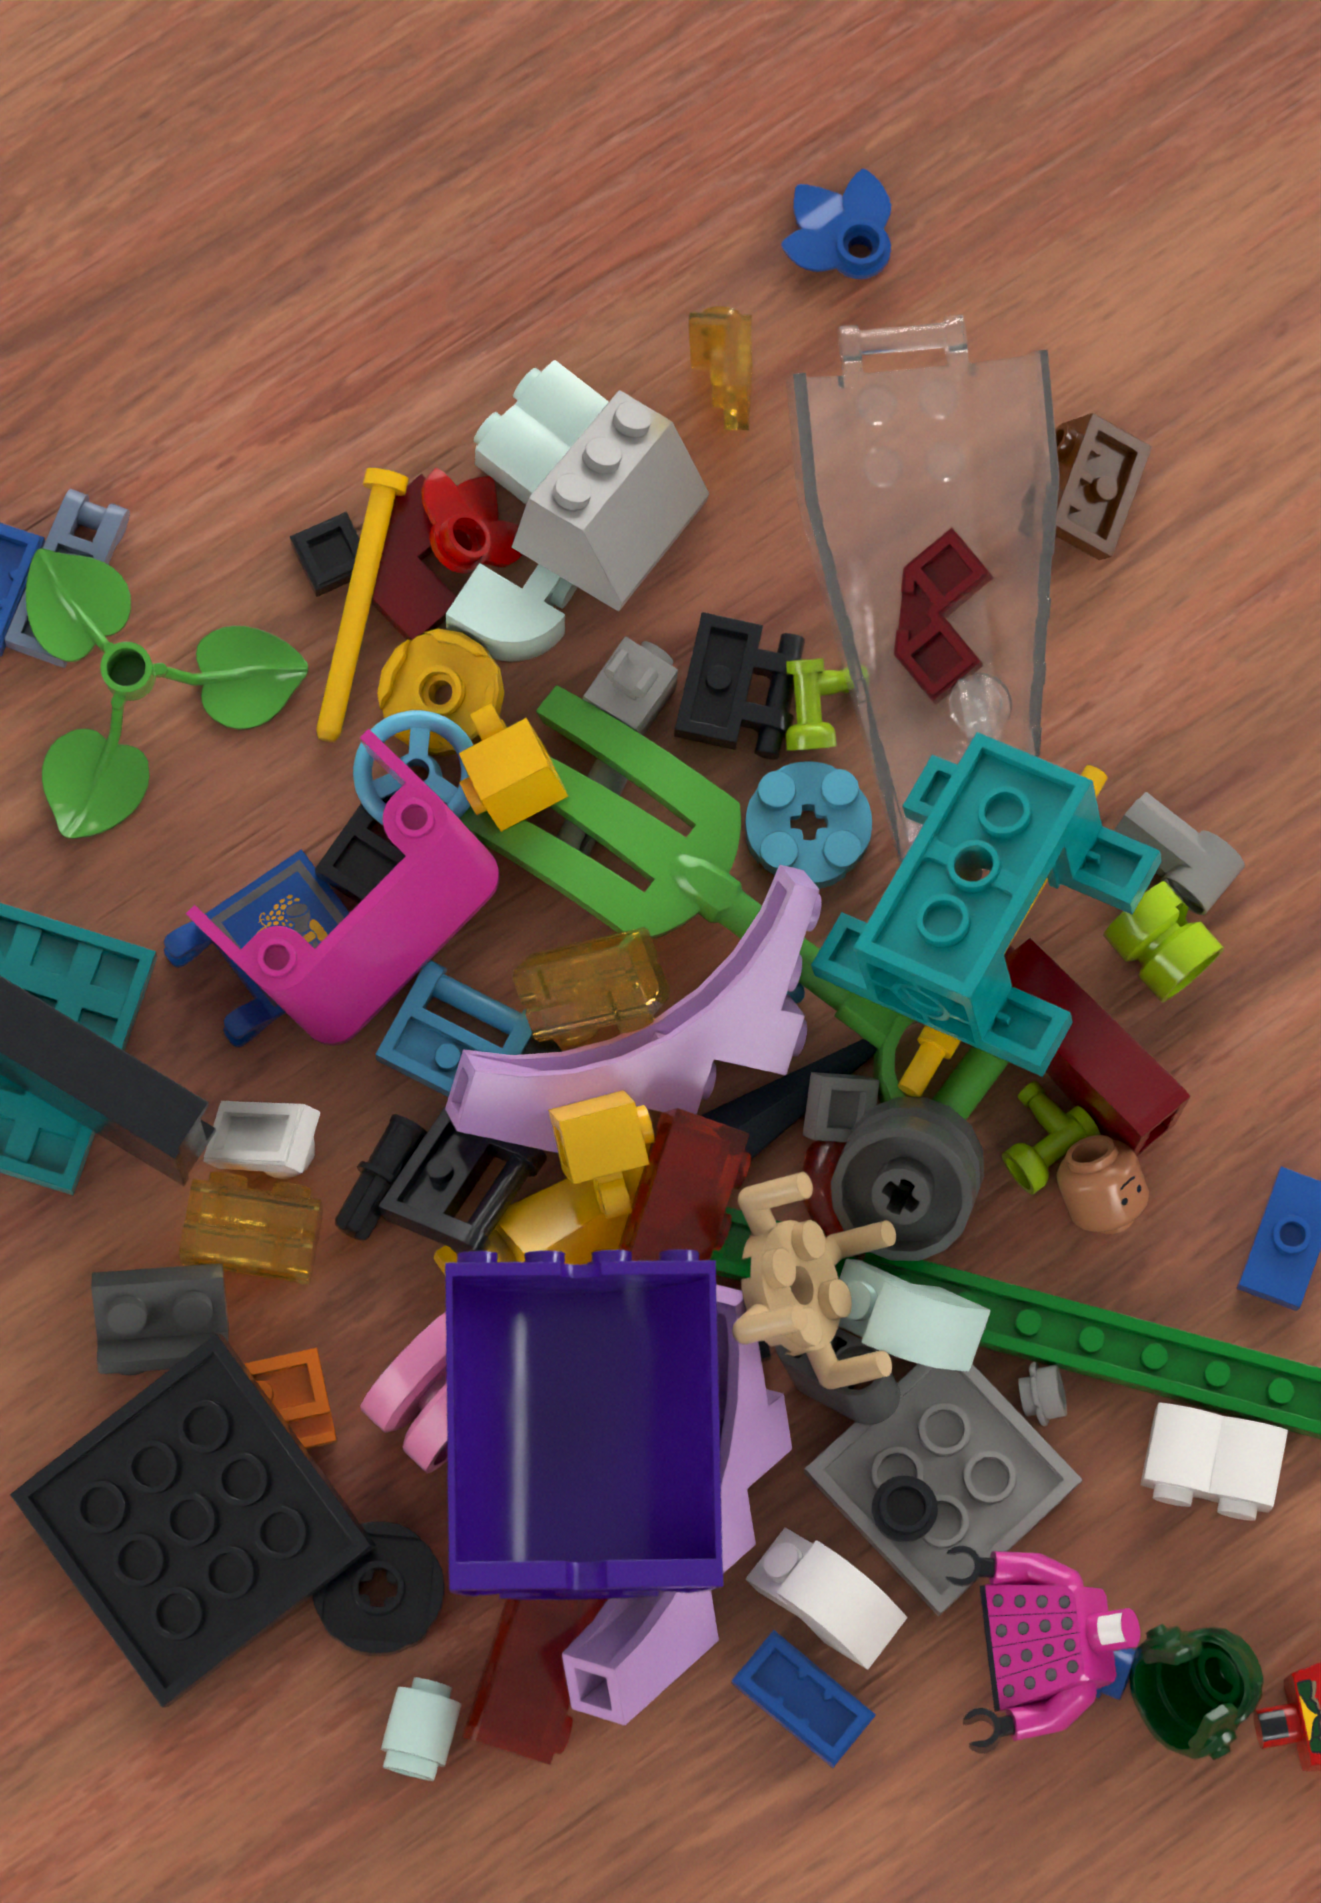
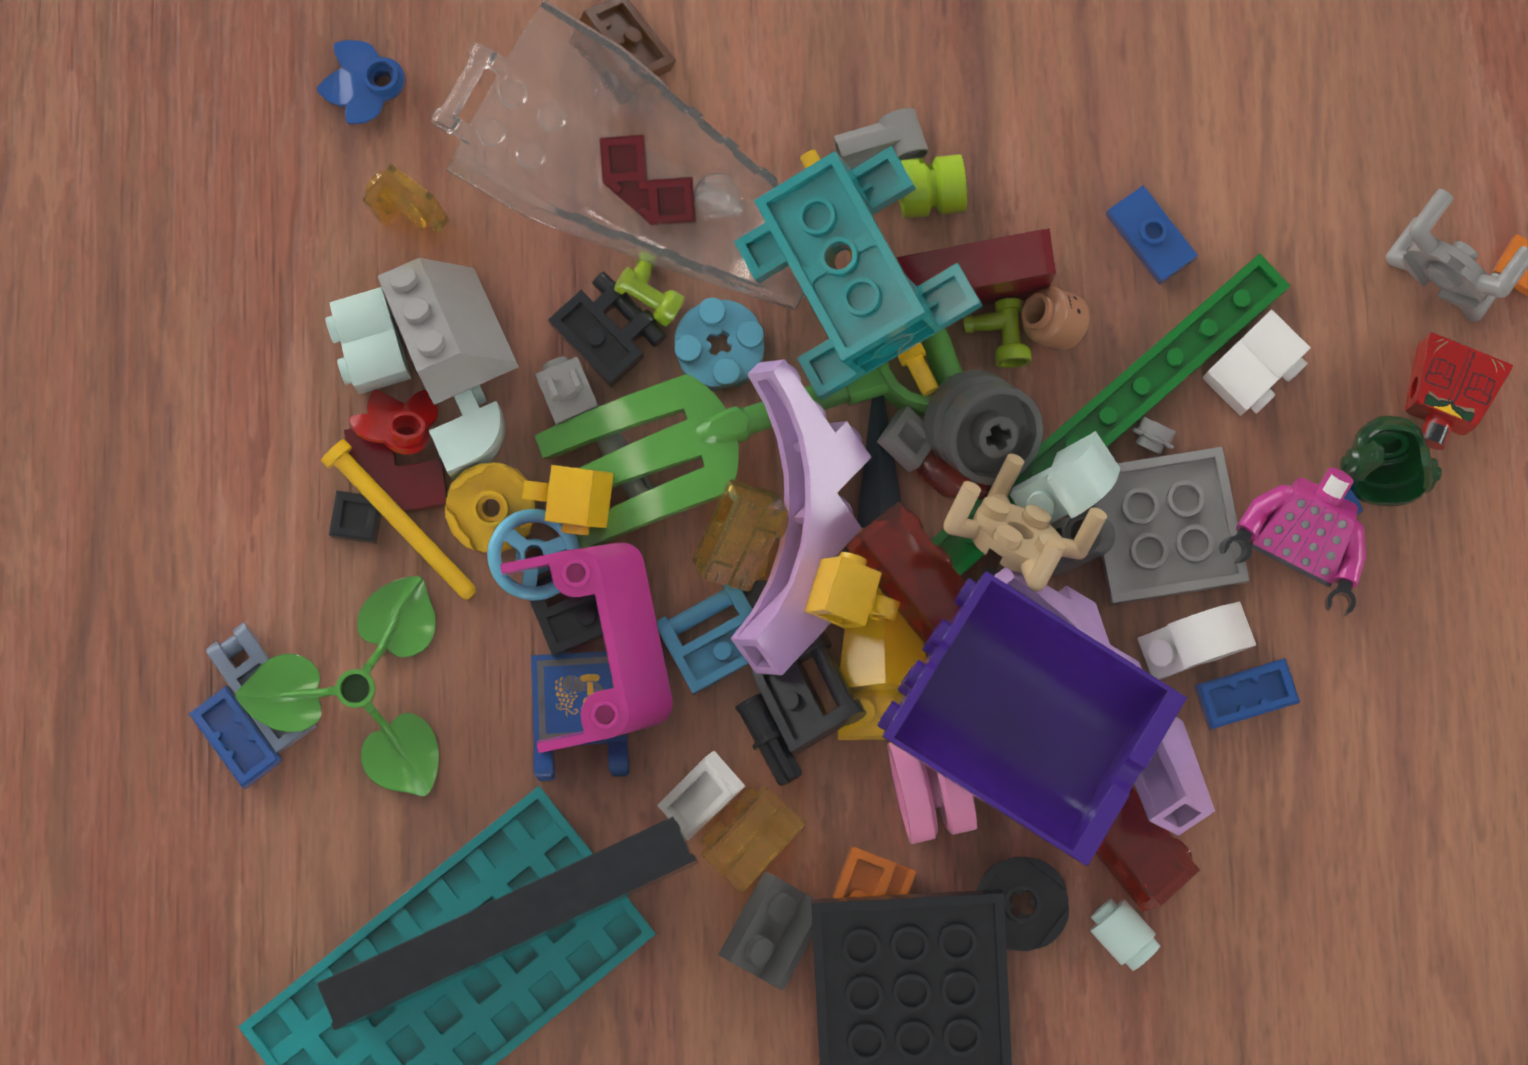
camera: 50 degrees left, 5 degrees up
(904, 1508) = (1177, 560): black plate -> none

